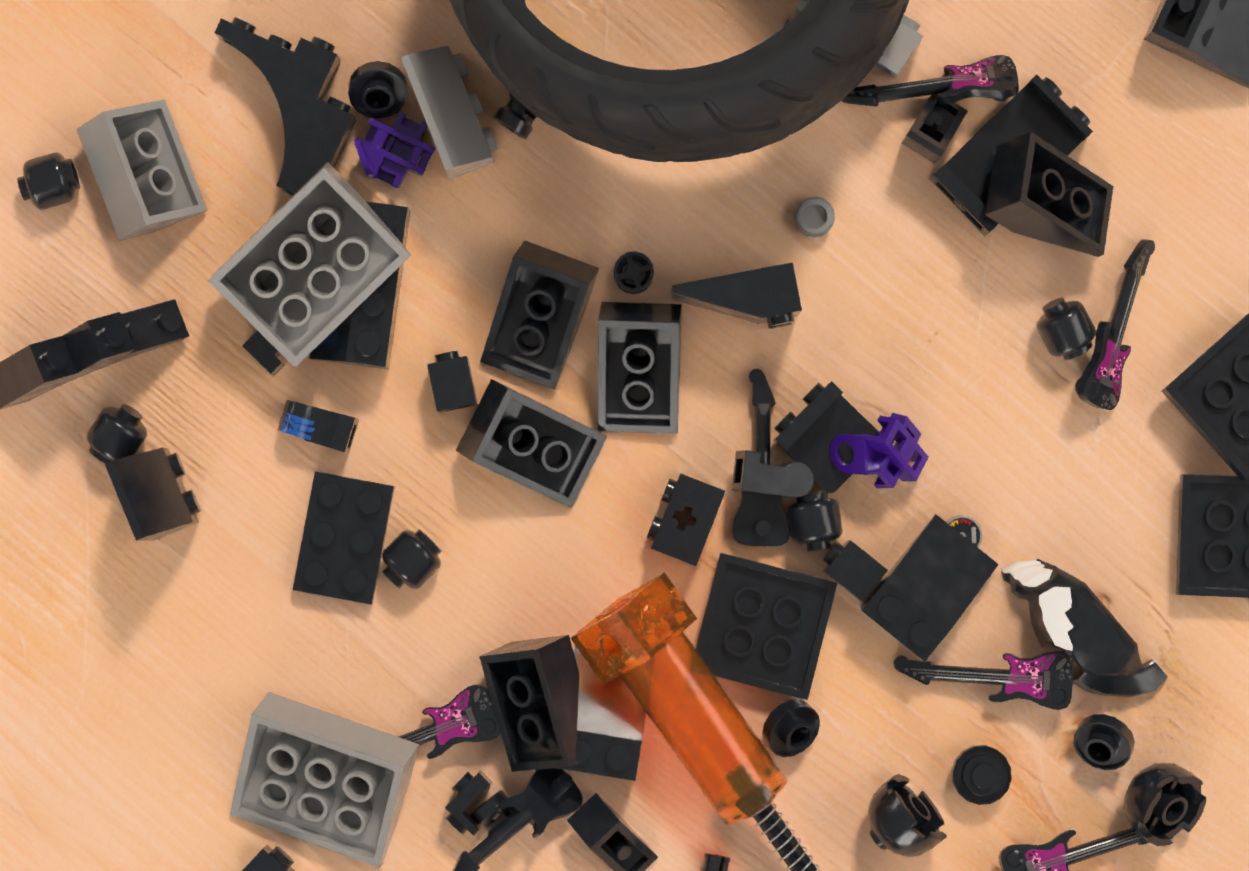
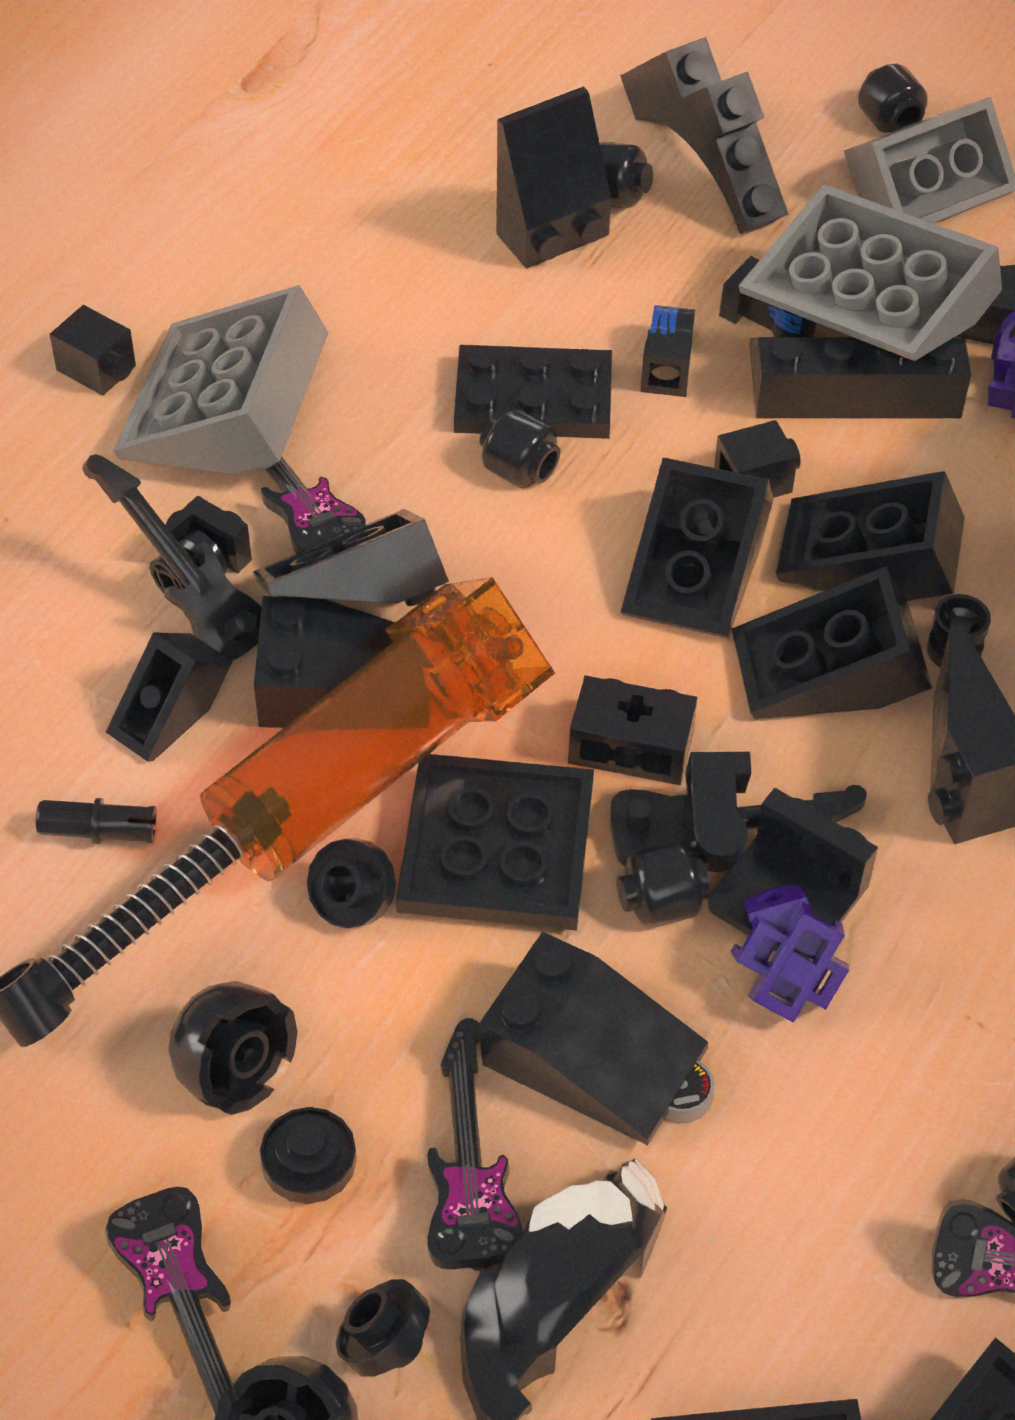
camera: 85 degrees right, 35 degrees down
(853, 569) = (607, 928): black brick -> none

